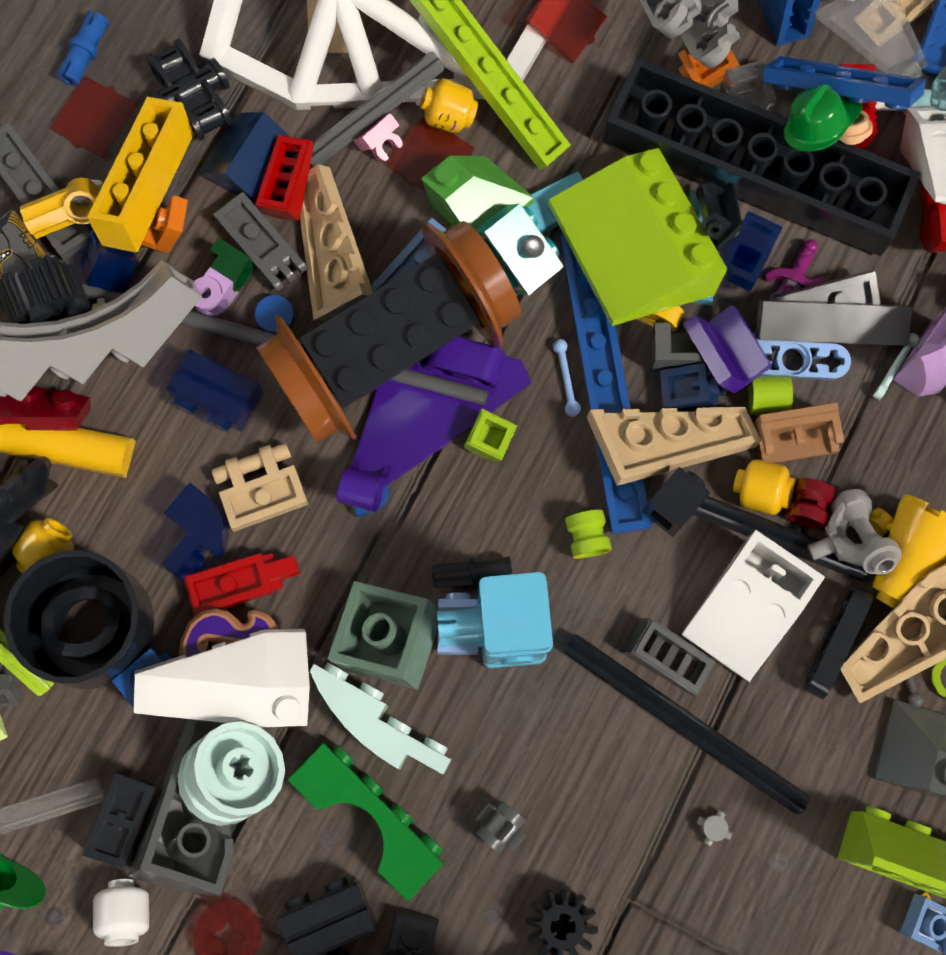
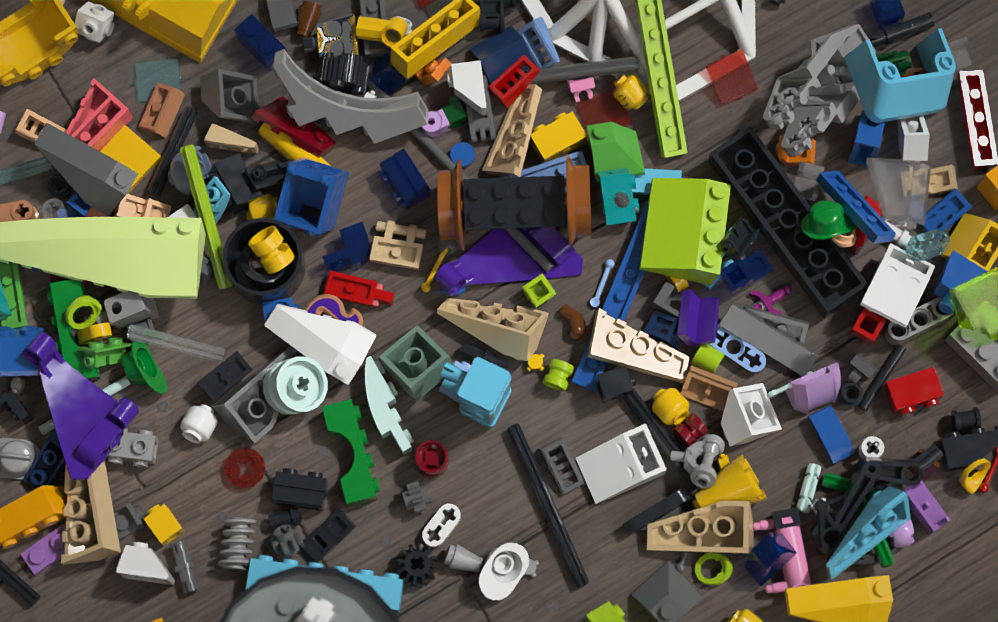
camera: 35 degrees right, 0 degrees up
(84, 600) = (270, 248): none -> yellow wheel
(90, 473) = (315, 186): none -> blue container
(228, 213) = (468, 84): none -> white slope
(275, 88) = (542, 33): none -> medium blue slope
(328, 452) = (446, 248): none -> hinge
(390, 218) = (558, 137): none -> yellow brick
(479, 515) = (506, 330): none -> tan wedge
(489, 758) = (432, 459): none -> dark red wheel
(544, 535) = (535, 362): none -> yellow piece
(566, 447) = (576, 320): none -> reddish brown arm
(568, 846) = (437, 521): none -> white beam
(616, 876) = (462, 559): none -> light grey cone
(688, 859) = (503, 570): none -> white piece
(874, 440) = (748, 415): none -> white slope

